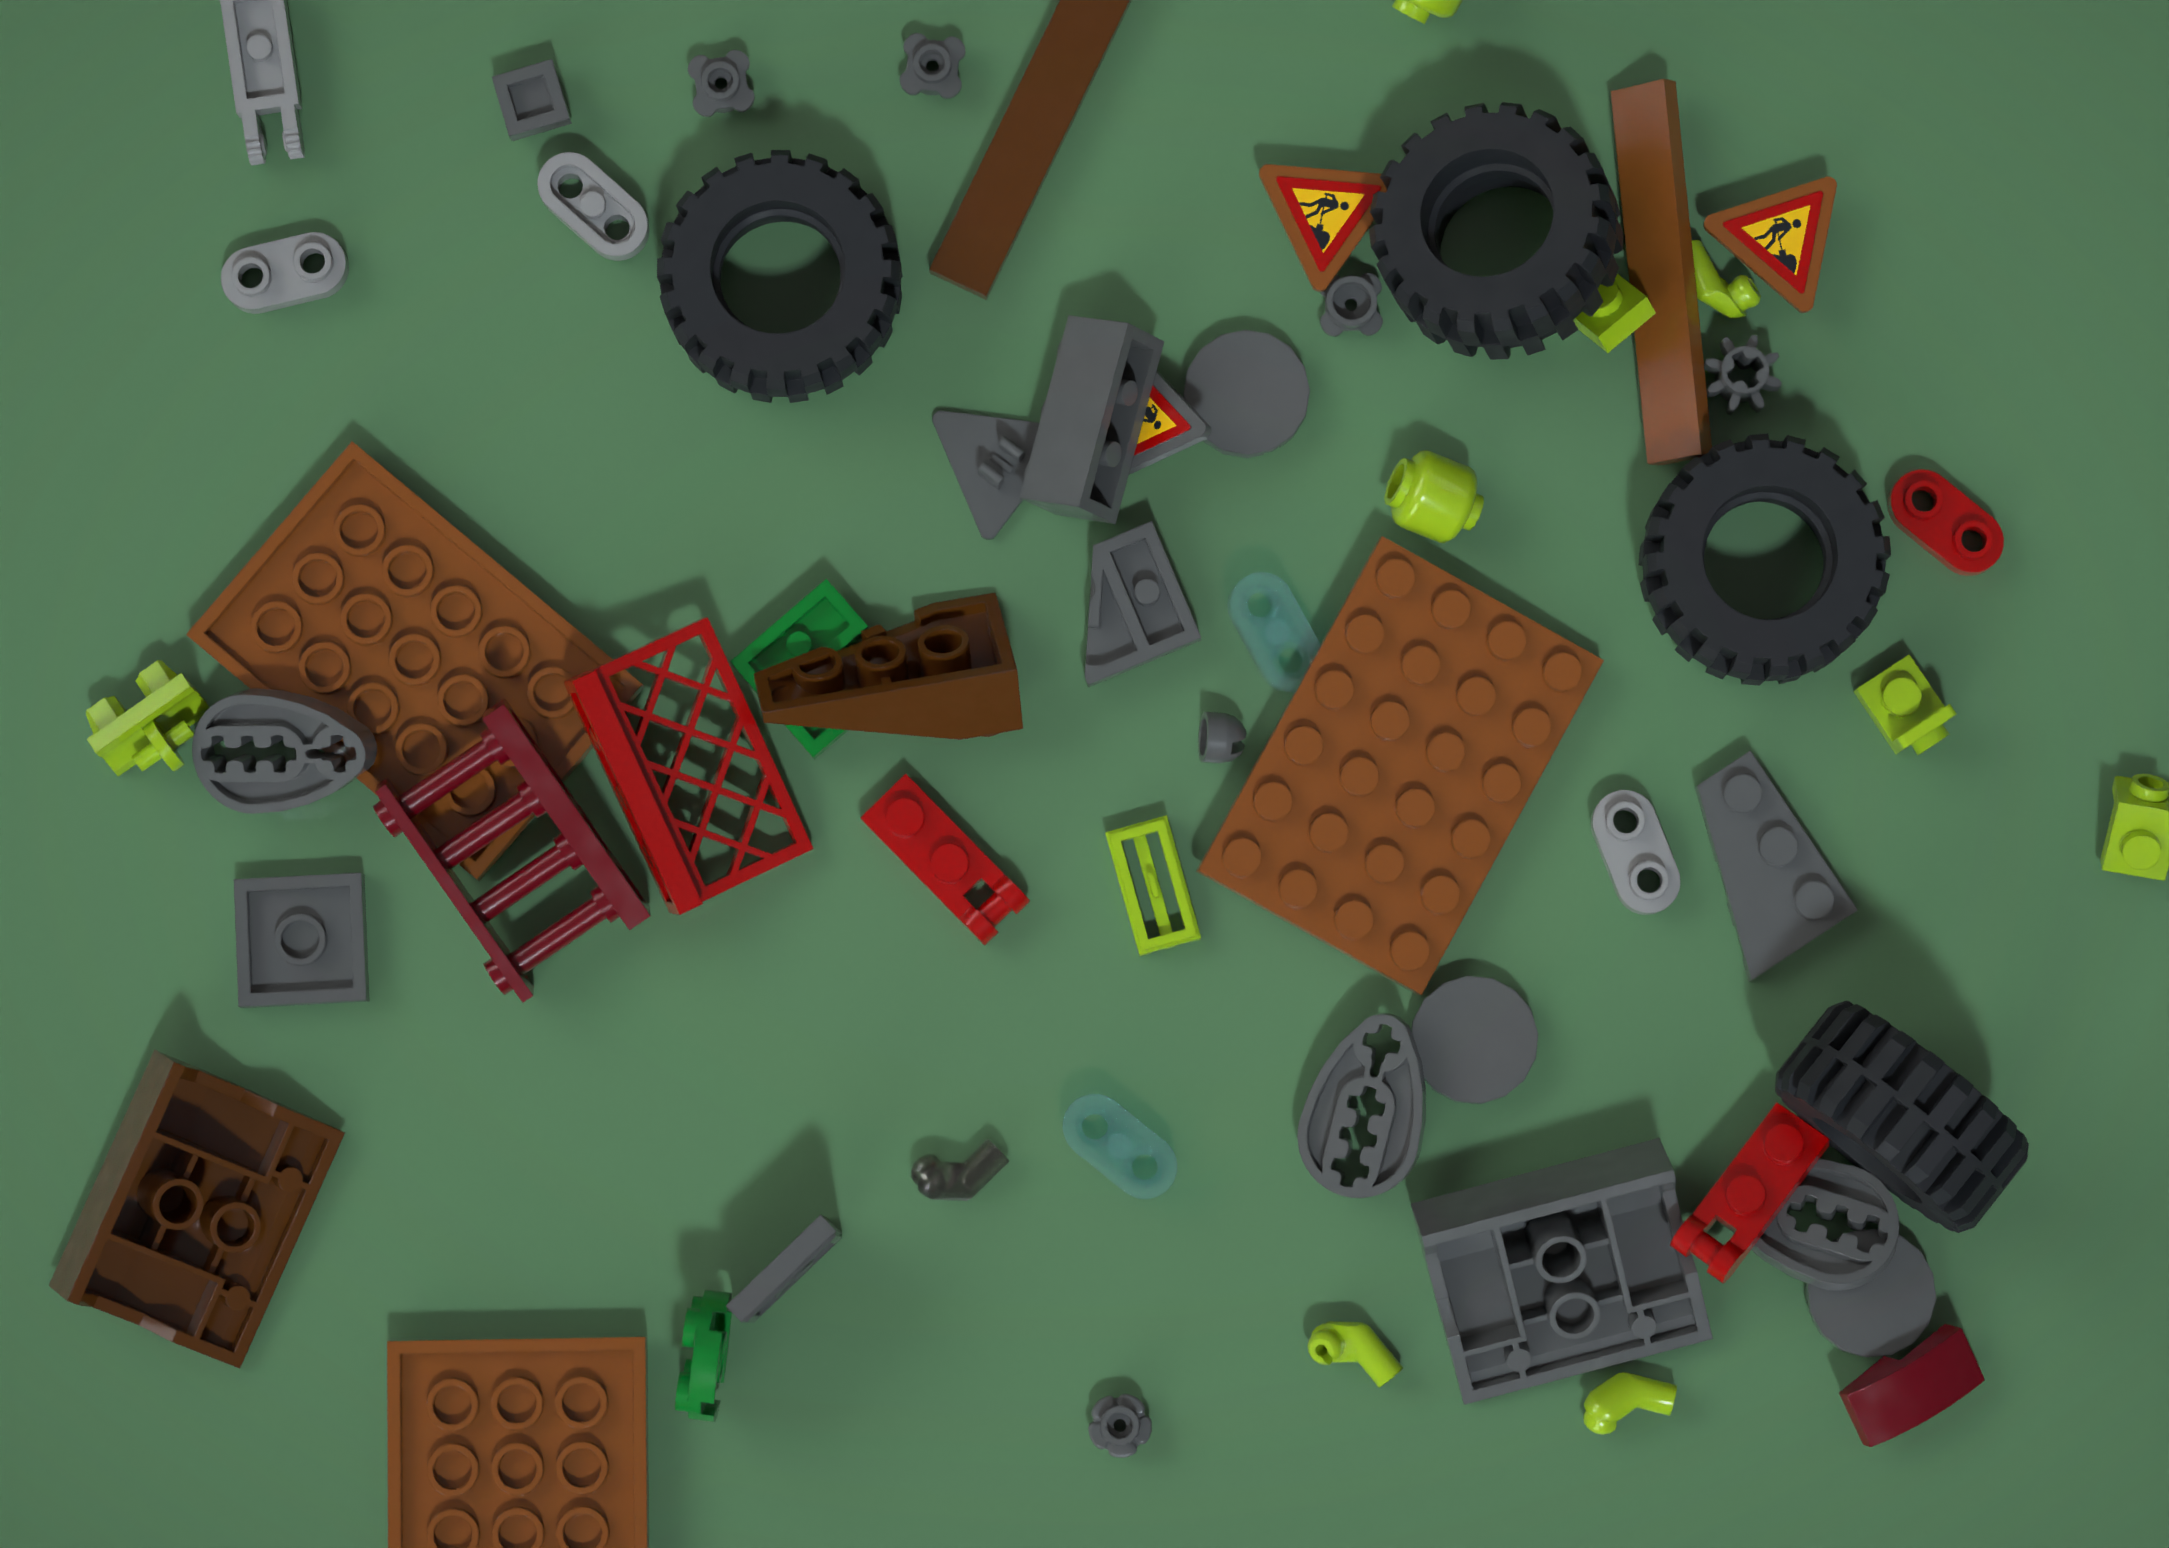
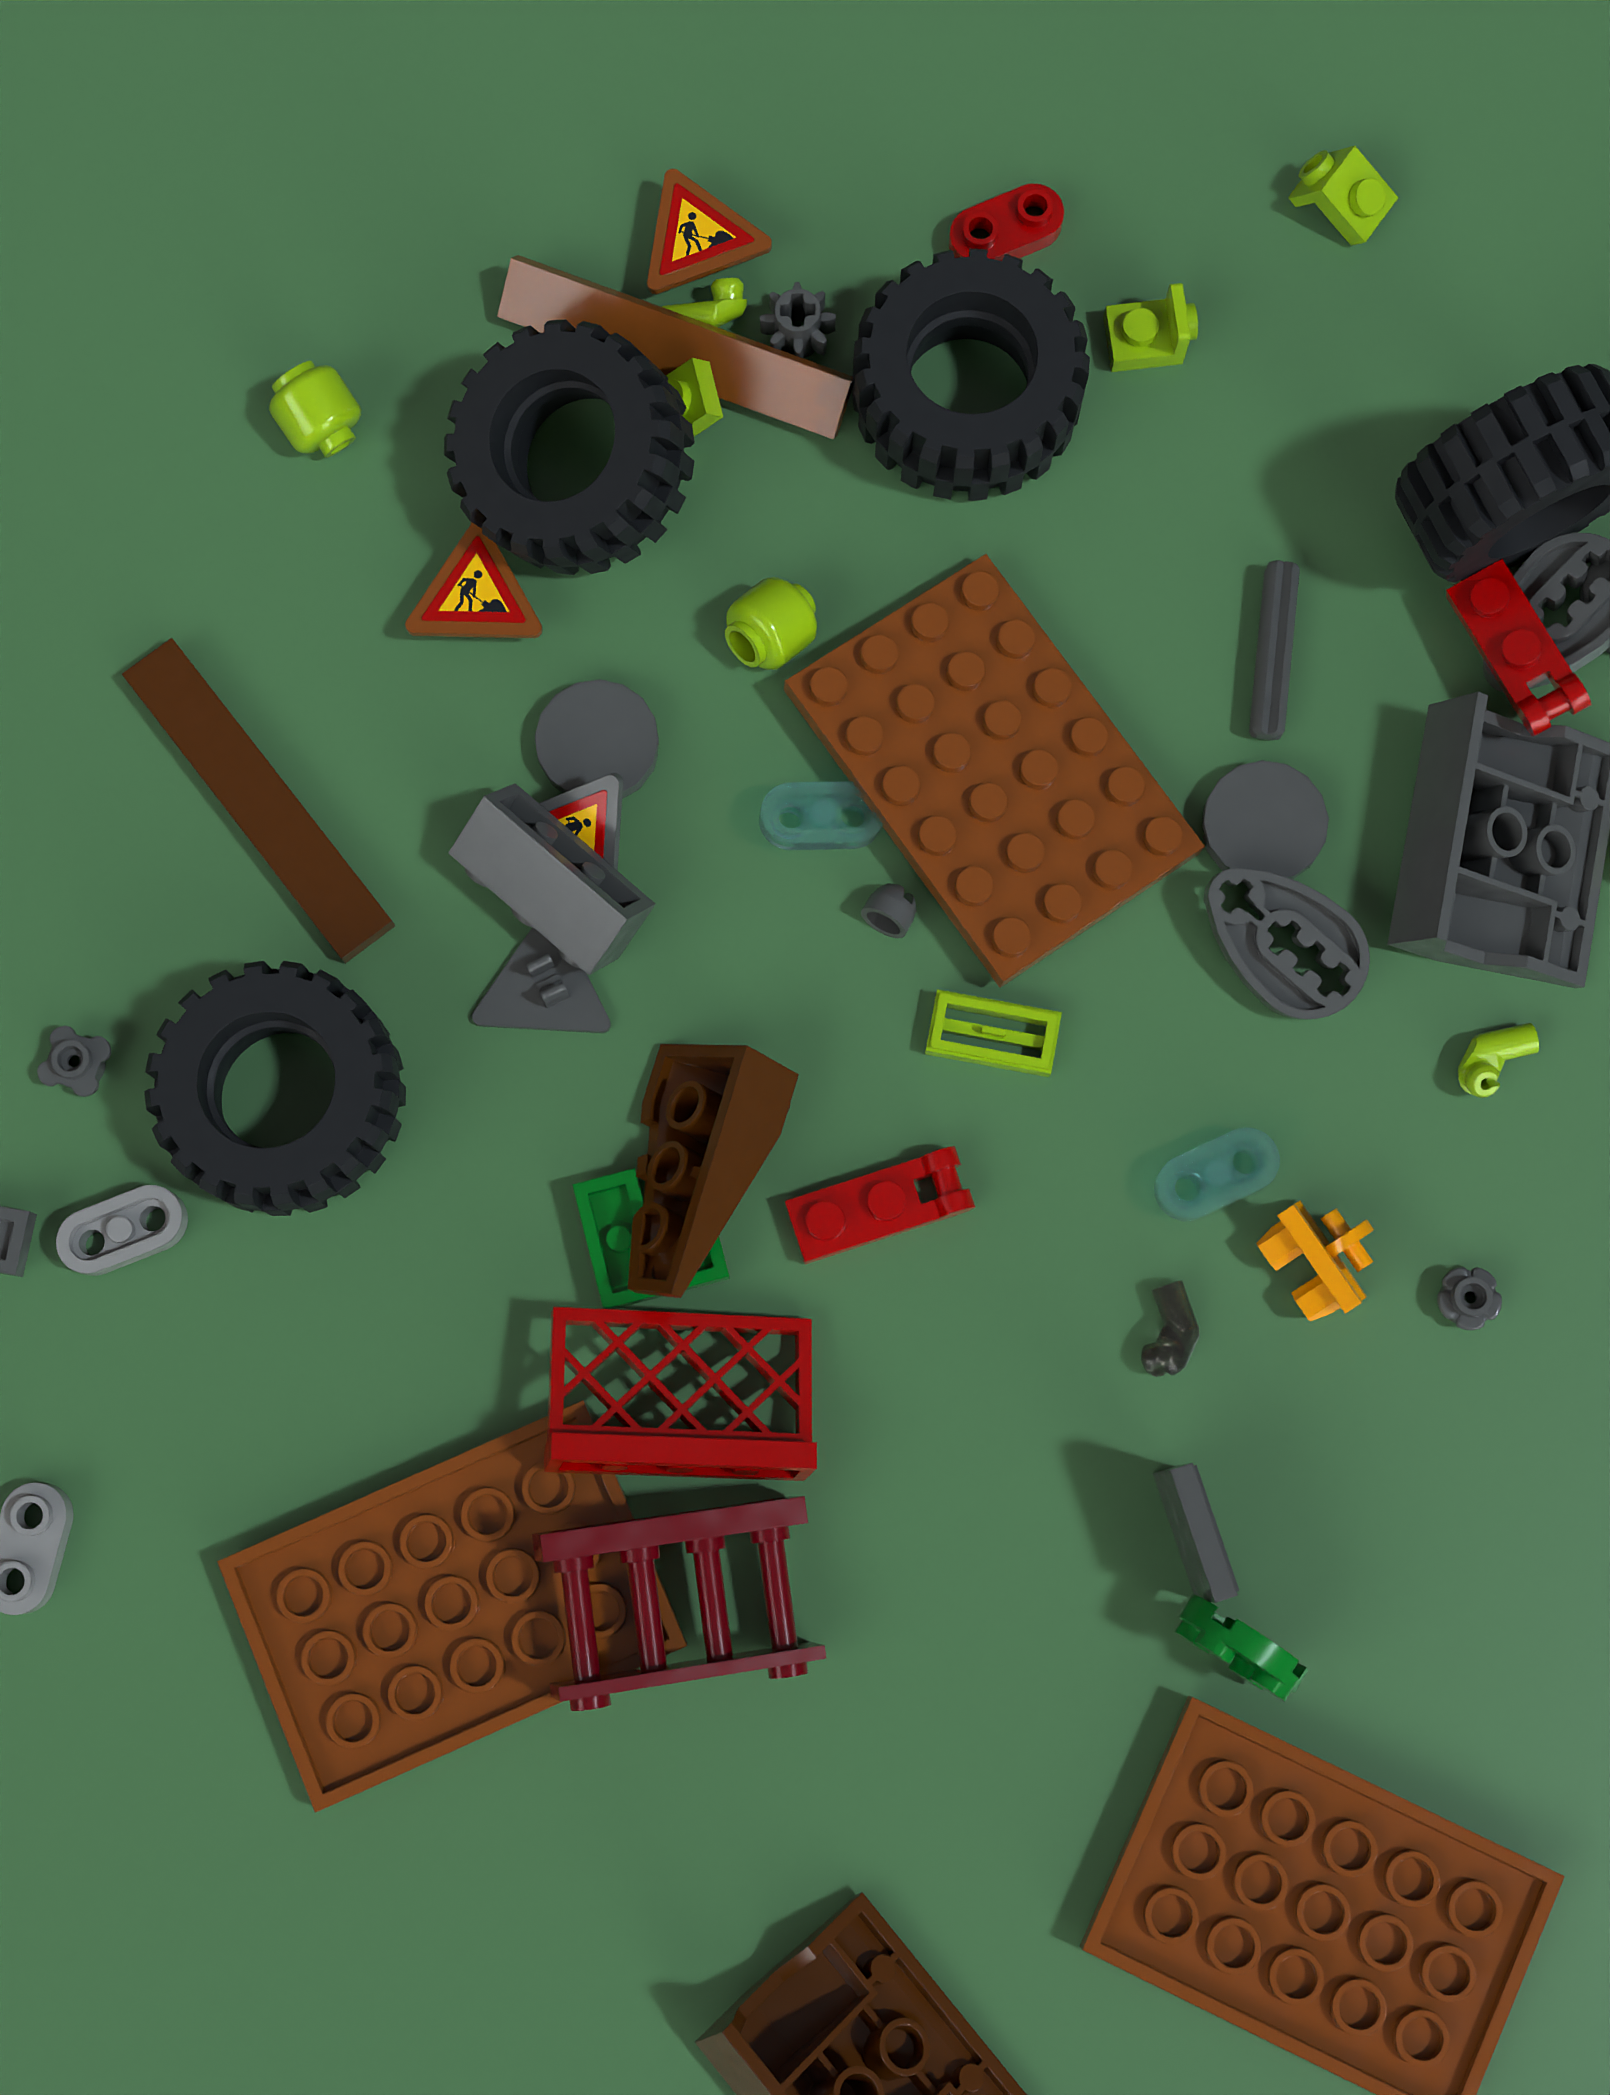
camera: 65 degrees left, 5 degrees down
(150, 727) = (385, 1892): lime hips -> none
(272, 782) = (496, 1799): dark grey piece -> none
(301, 940) = (659, 1844): dark grey tile -> none
(939, 82) = (167, 885): dark grey plate -> none
(1096, 1276) = (1334, 1284): none -> light orange hips
(1134, 606) = (735, 926): dark grey wing -> none
(1364, 317) = (565, 598): dark grey plate -> none
(1635, 851) = (1166, 611): light grey plate -> none
(1646, 972) = (1274, 650): none -> dark grey axle
(1769, 867) = (1232, 506): dark grey wing -> none

